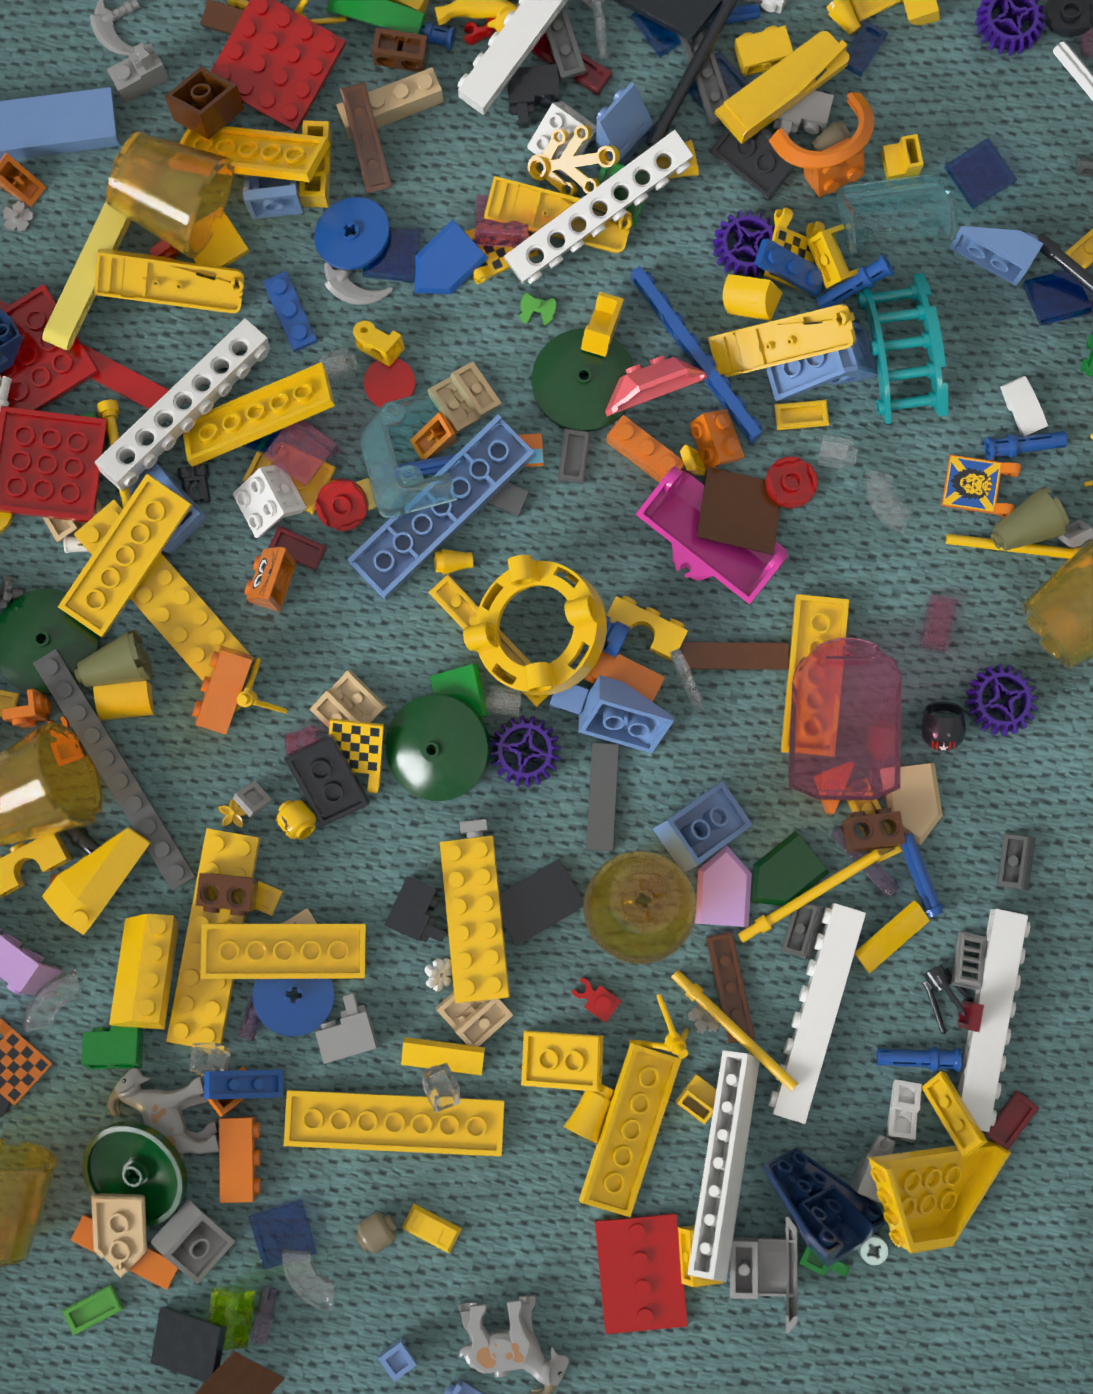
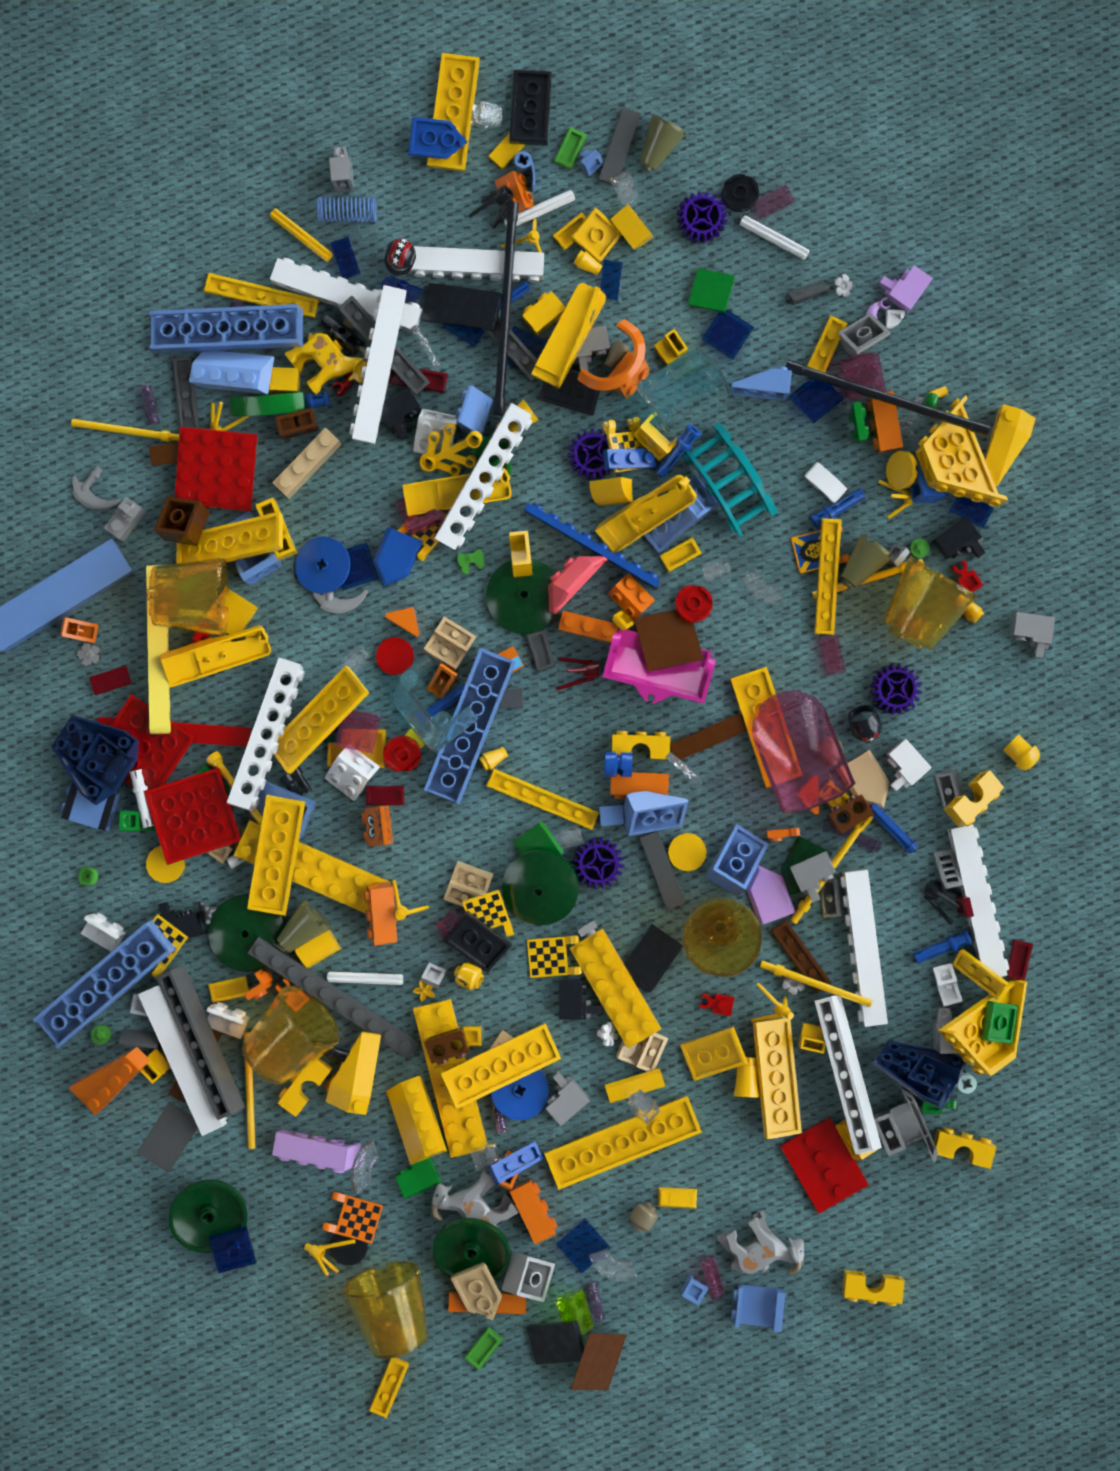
camera: 25 degrees left, 5 degrees up
(28, 259) = (110, 680): none -> dark red tile
(165, 764) = (365, 978): none -> white axle
(290, 311) = (305, 637): blue plate -> none
(365, 137) = (302, 496): reddish brown tile -> none
(377, 343) = (375, 634): yellow leg -> none
(410, 842) = (549, 956): none -> yellow flag
(423, 343) = (405, 619): none -> orange slope
(430, 1353) = (712, 1277): none -> clear pink tile
(583, 611) = (598, 759): yellow piece -> none
(624, 503) = (590, 670): none -> dark red plant
(644, 788) = (687, 852): none -> yellow tile
(769, 817) = (776, 835): none -> orange plate
(793, 881) = (811, 871): none -> light grey hinge
(853, 1350) = (981, 1150): none -> yellow arch
(891, 936) = (891, 876): yellow tile -> none
(952, 1188) = (999, 1022): none -> green tile
(976, 521) = (827, 576): none -> yellow tile
(978, 802) = (909, 763): none -> white hinge
(983, 112) = (711, 290): none -> green tile
(1062, 878) = (985, 789): none -> yellow arch

